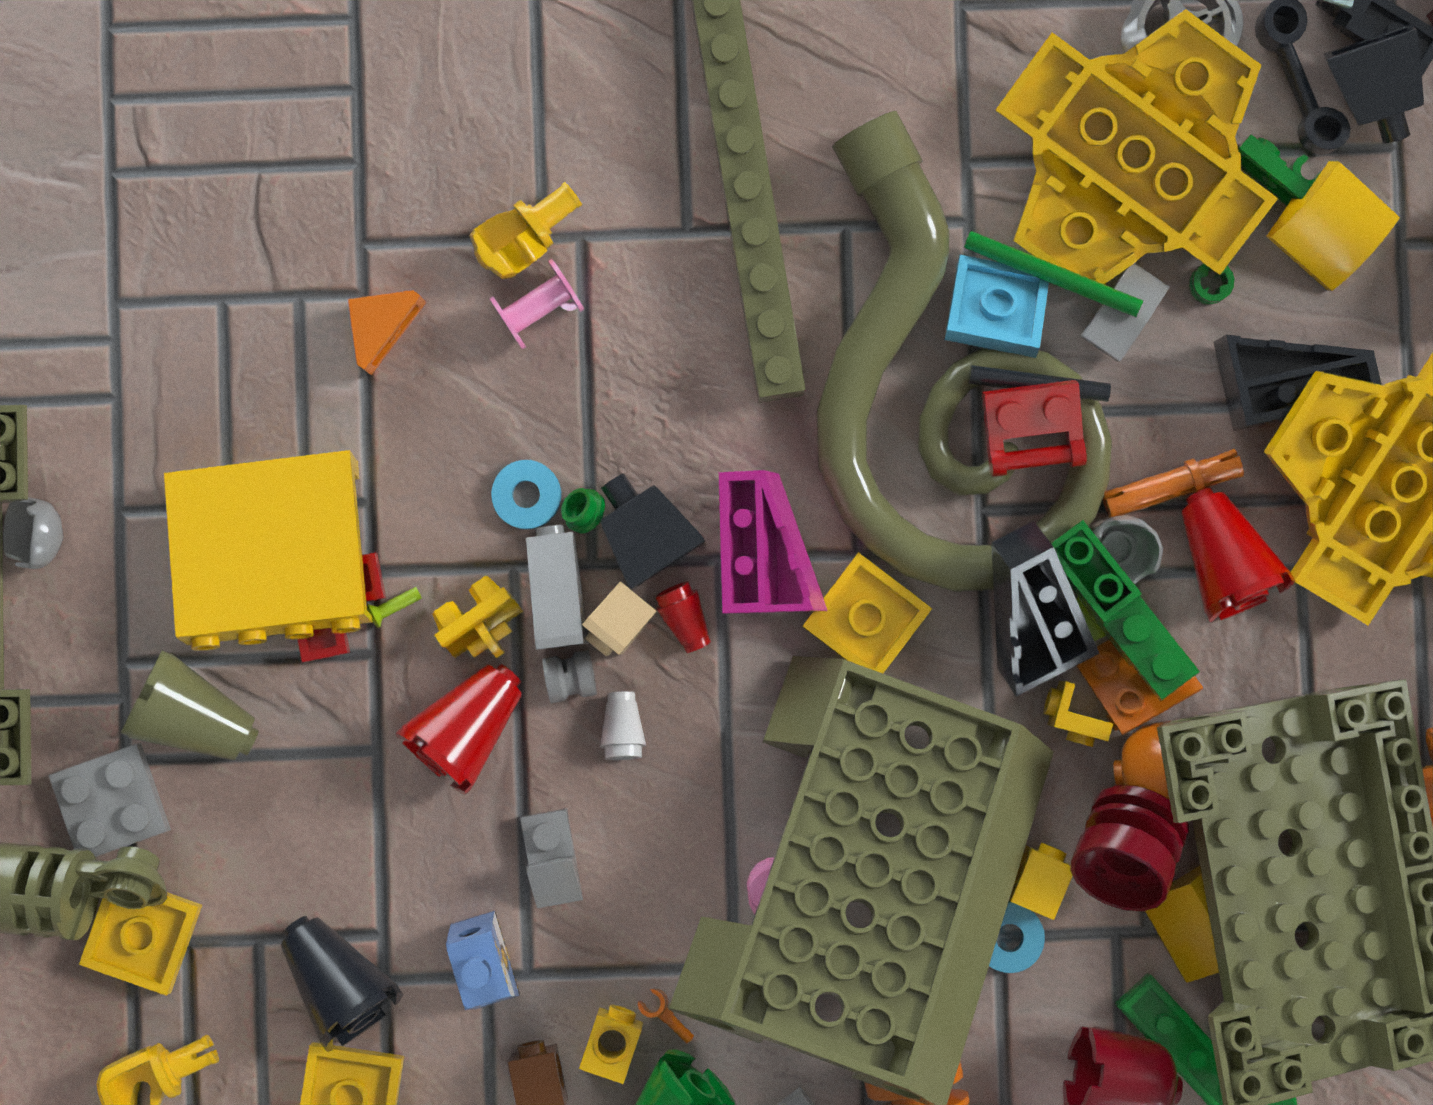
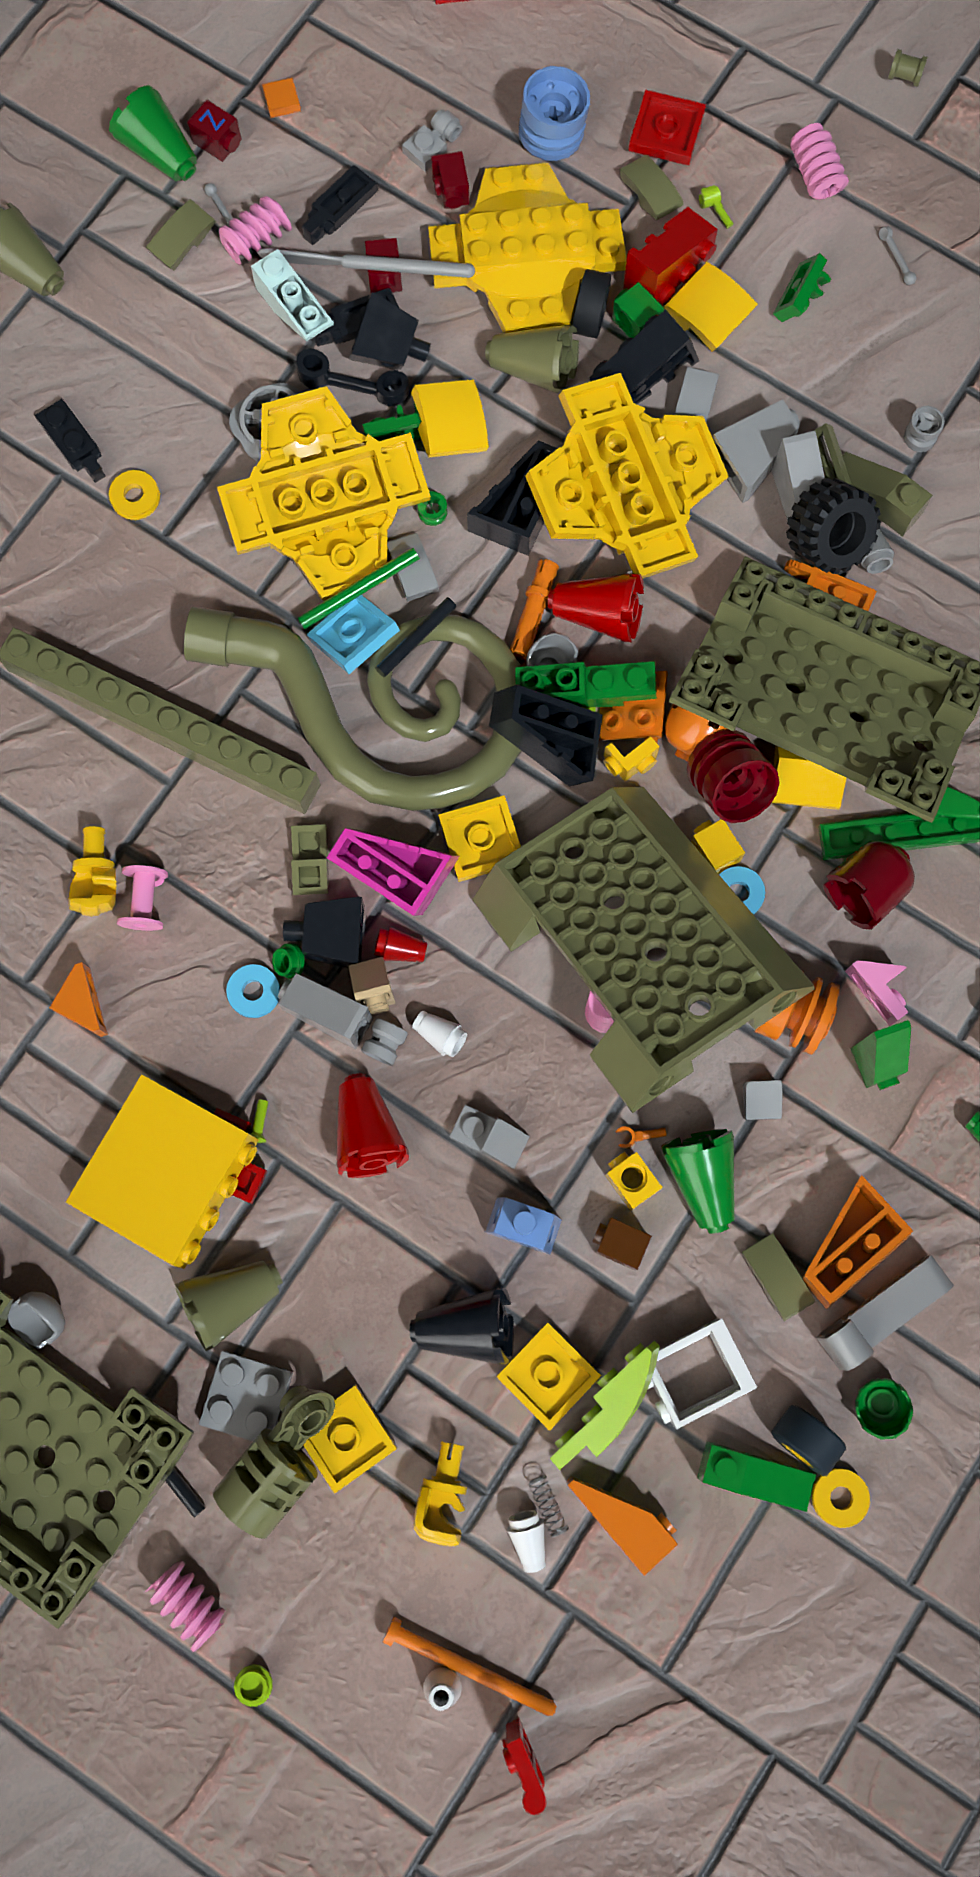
camera: 50 degrees left, 10 degrees down
(482, 625) = (311, 1074): yellow hips -> none
(710, 448) = (309, 859): none -> olive slope
(1030, 413) = (429, 652): red plate -> none

